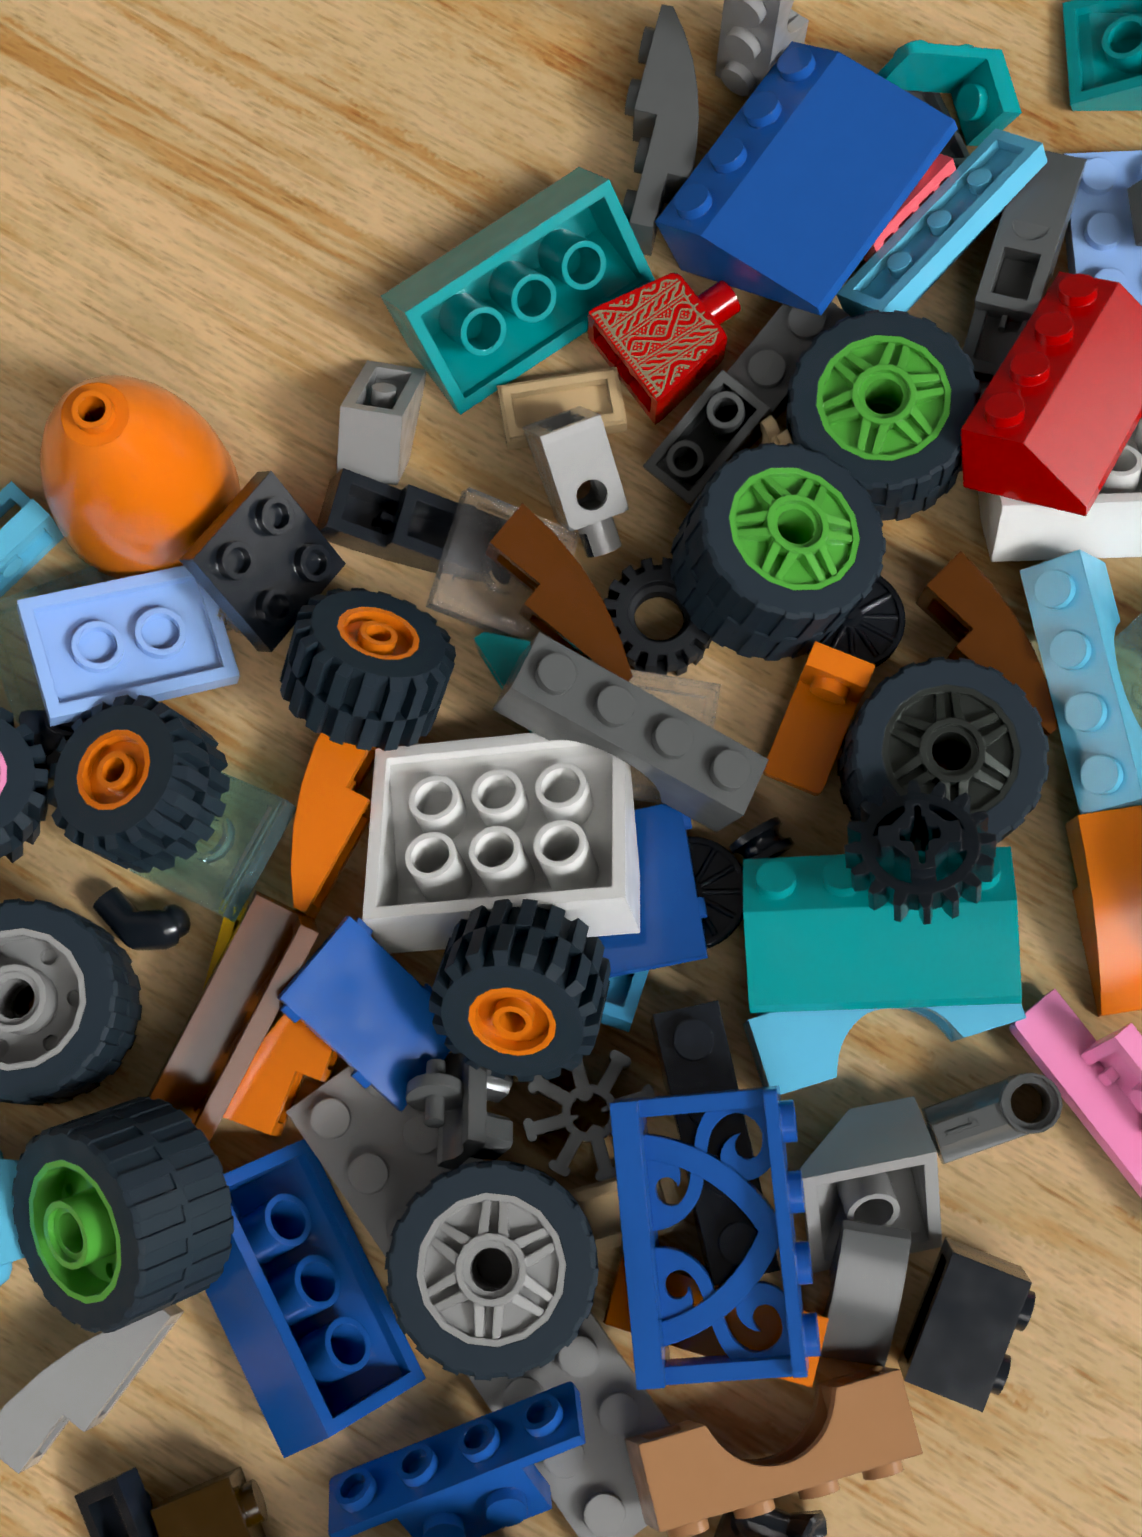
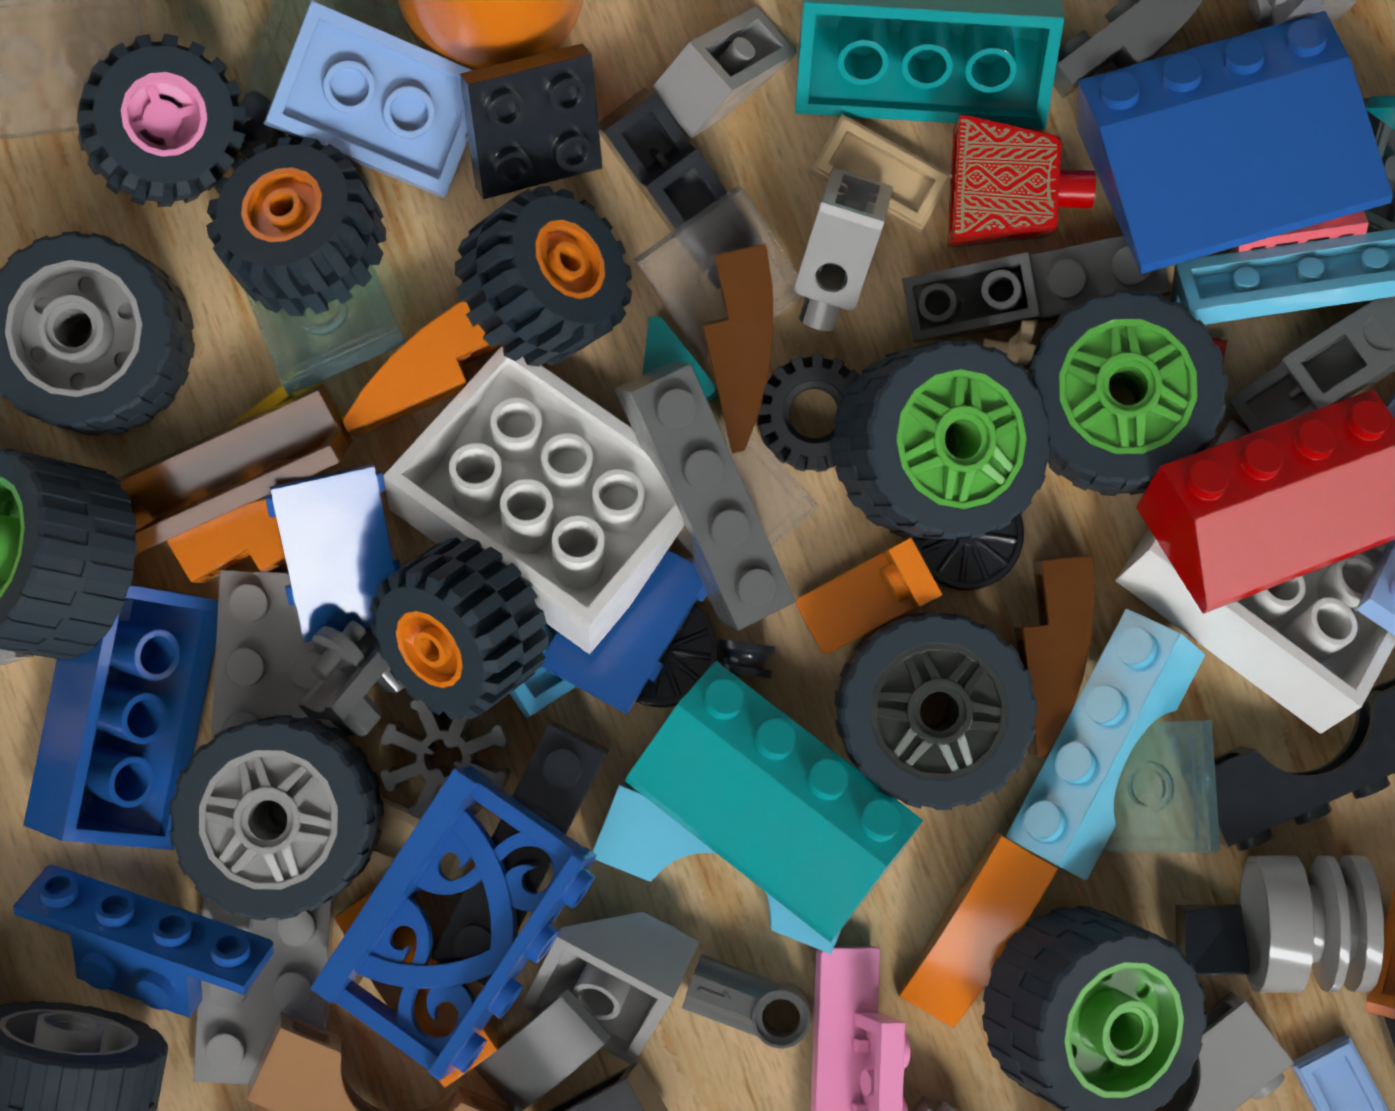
camera: 40 degrees right, 10 degrees up
(144, 928) = (218, 339): black arm -> none
(954, 844) = (860, 789): black gear -> none

